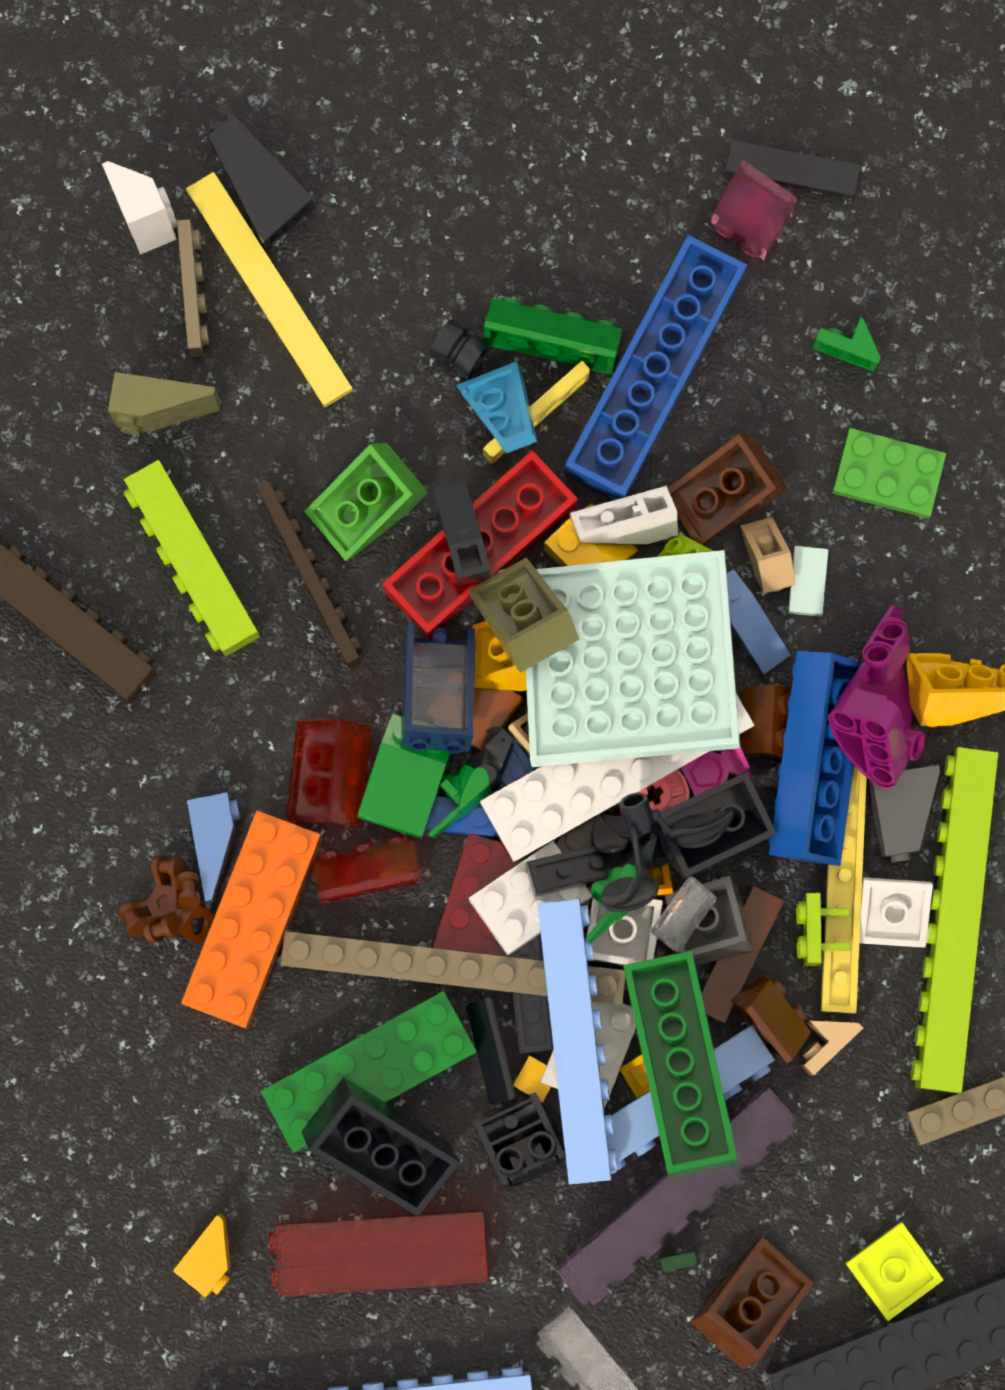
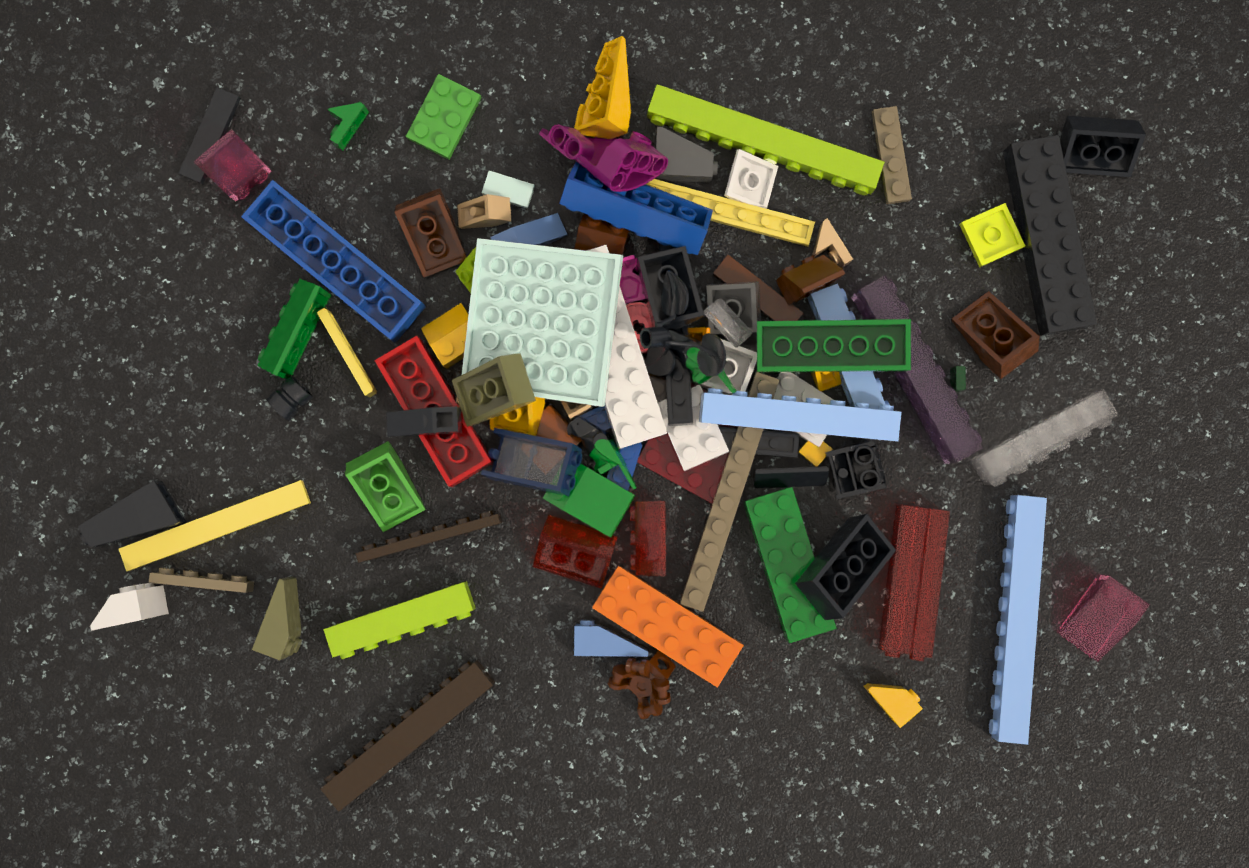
camera: 75 degrees left, 5 degrees up
(502, 406) = (337, 375): dark azure wing -> none
(629, 520) = (439, 303): white slope -> none
(809, 914) = (761, 240): lime plate -> none

